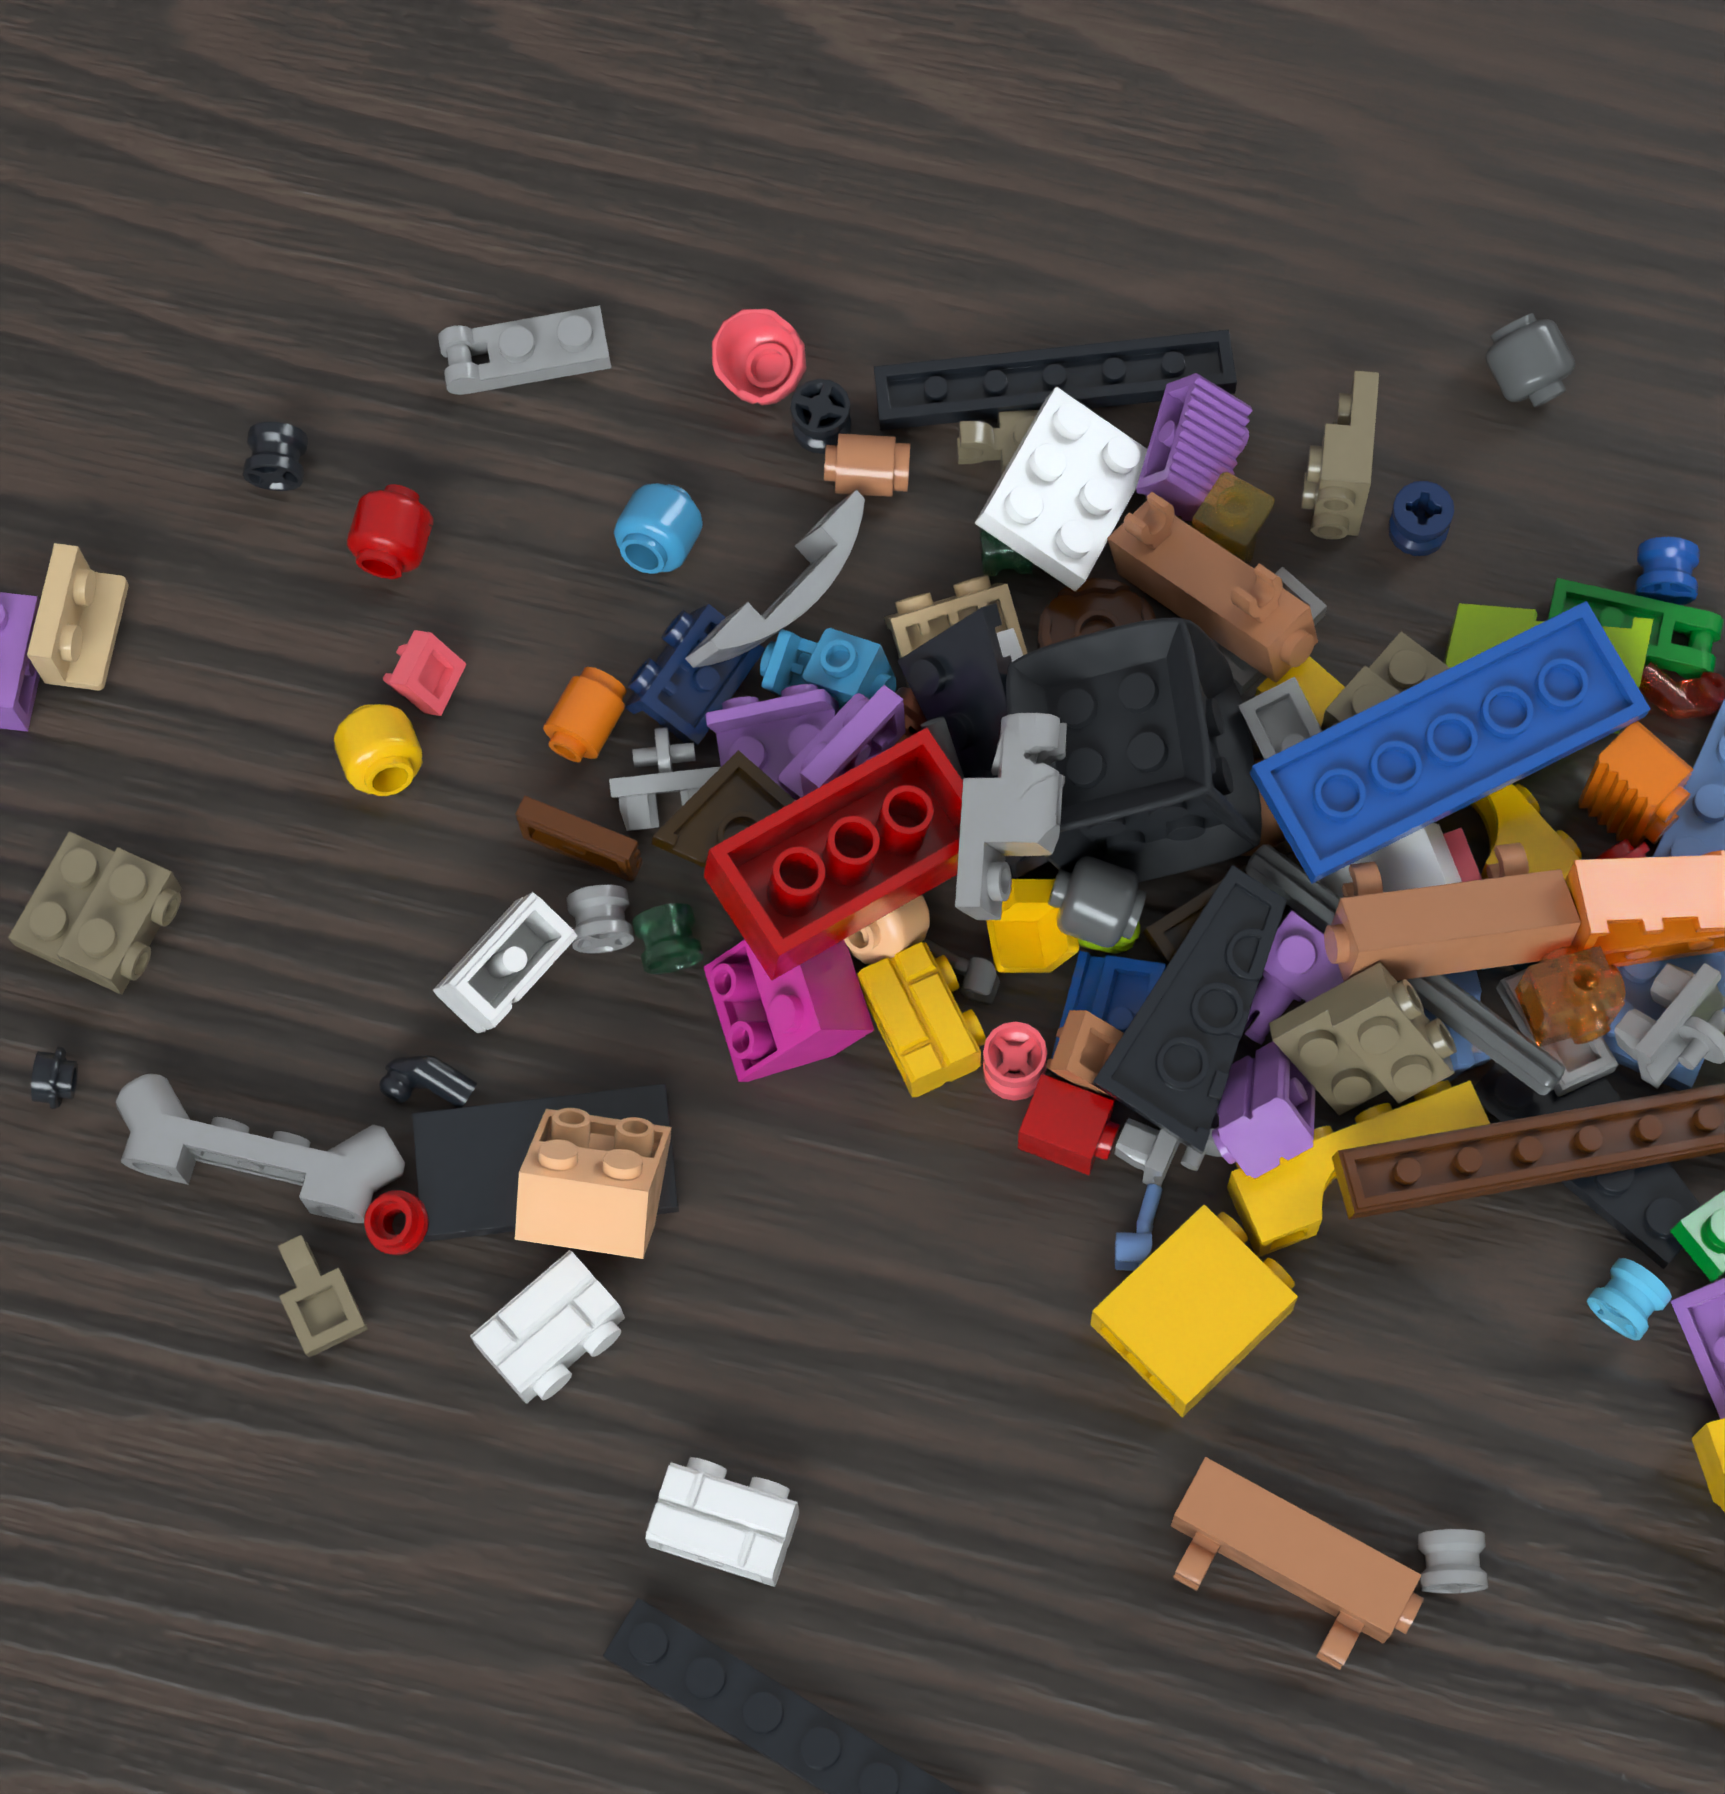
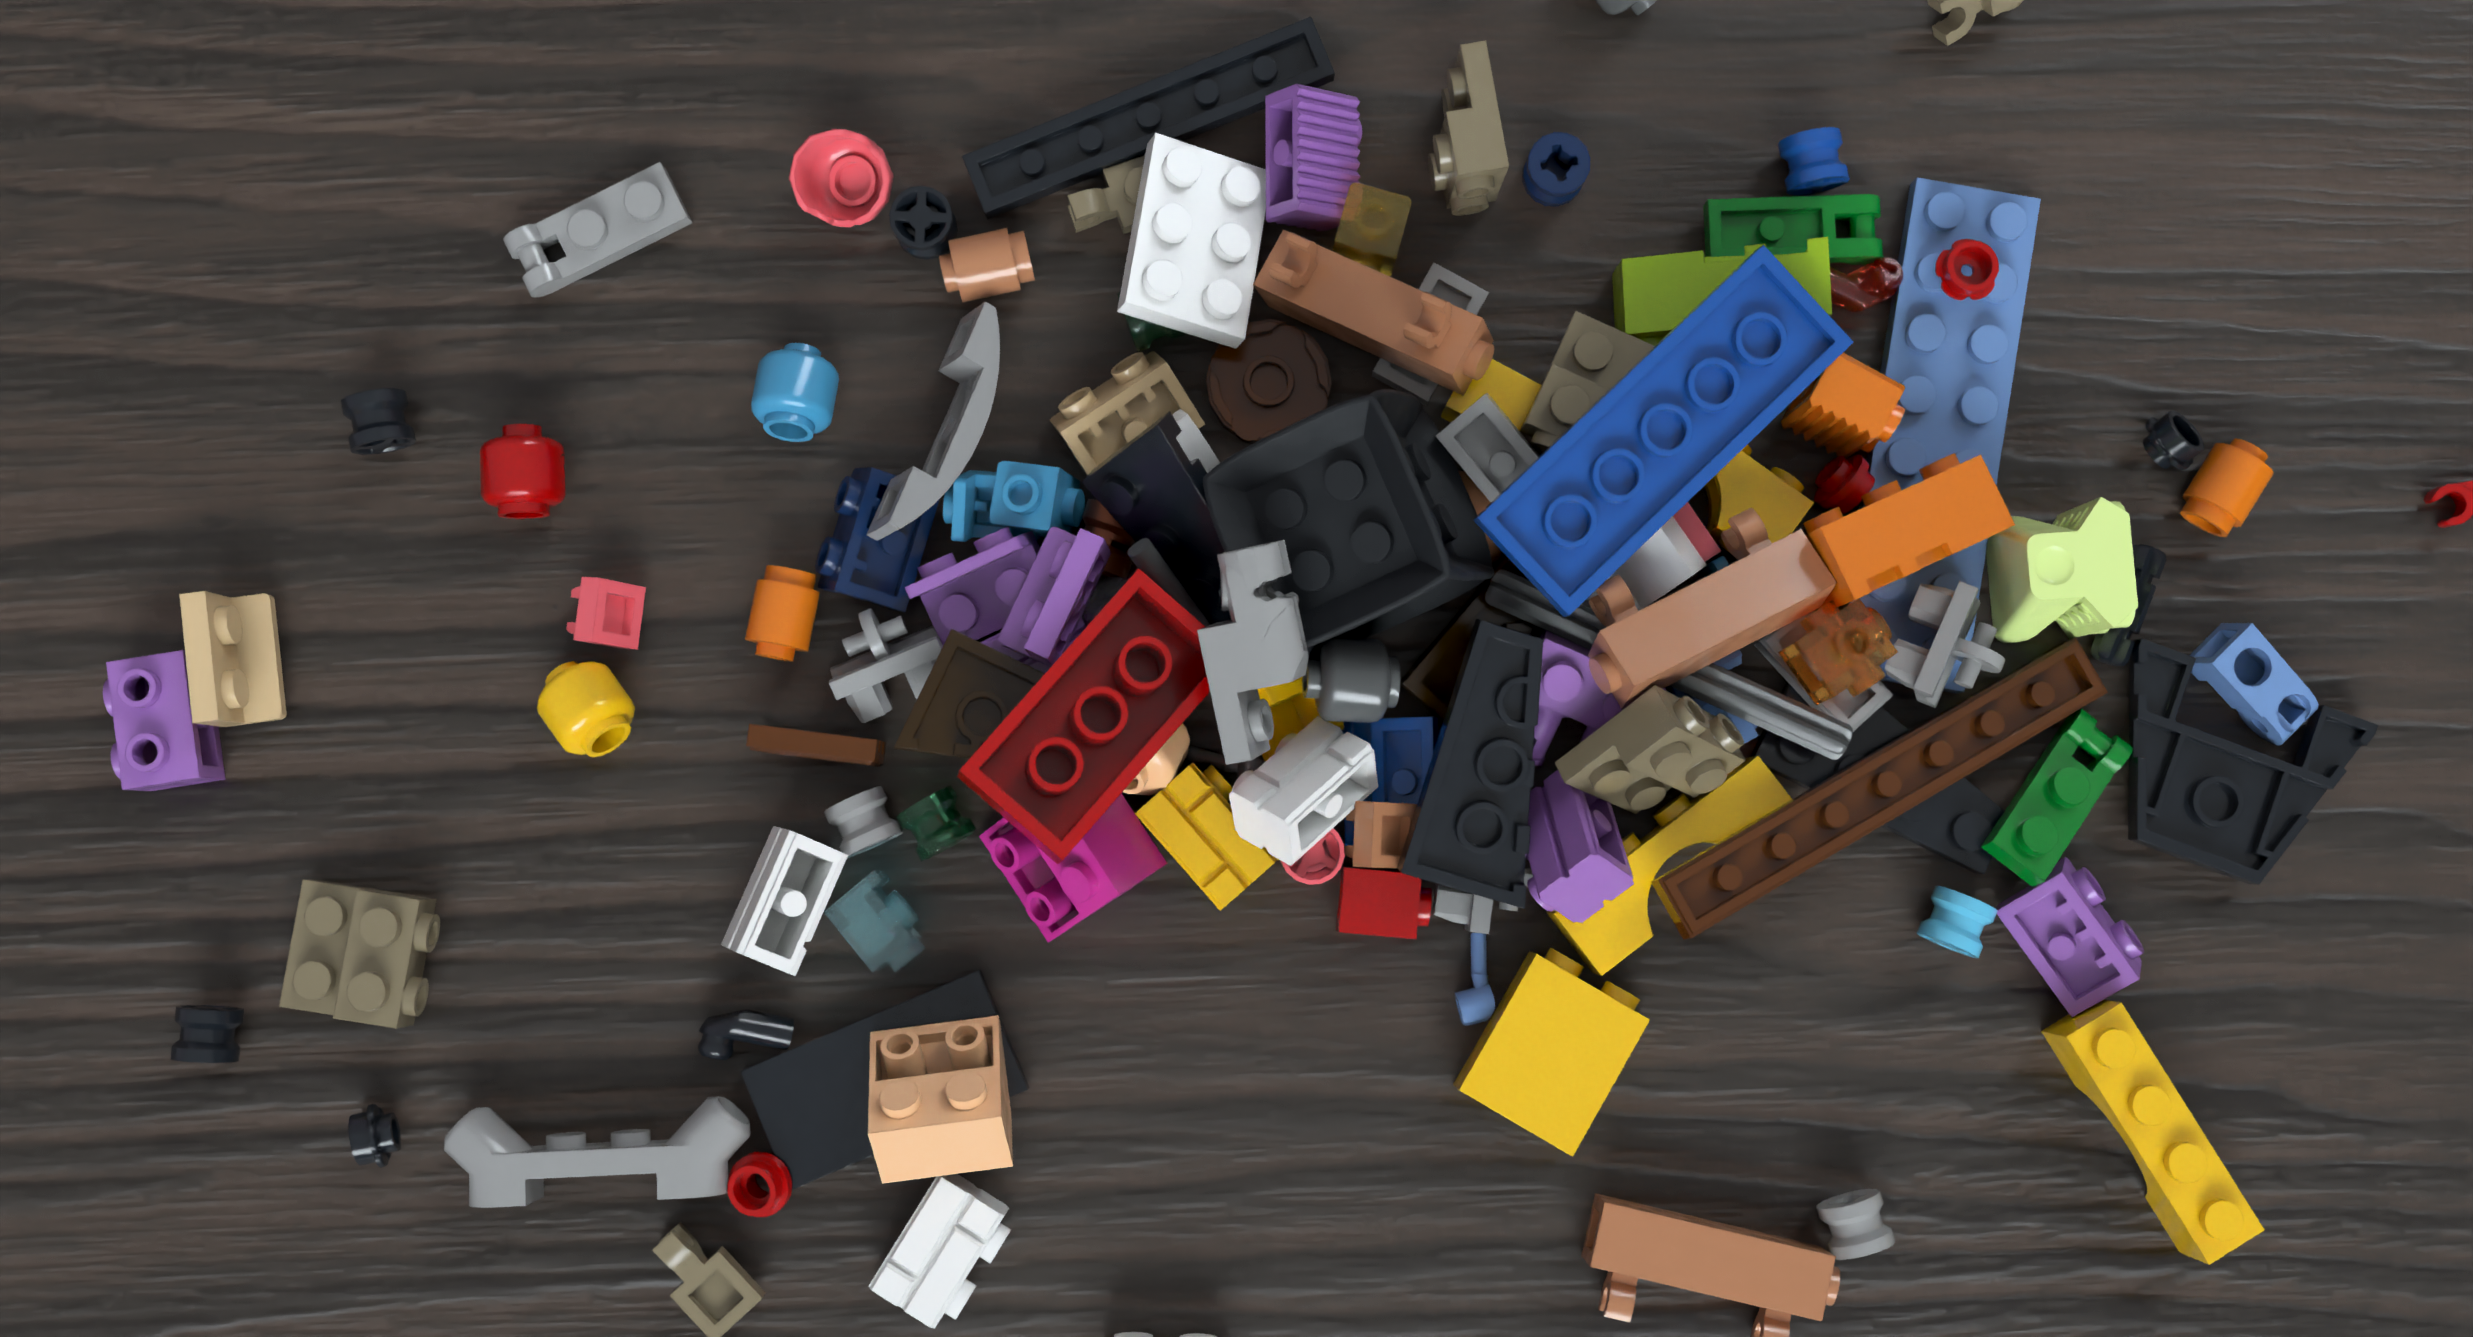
camera: 20 degrees left, 15 degrees up
(584, 1013) = (877, 924): none -> clear light blue brick
(1022, 988) = (1303, 789): none -> white brick

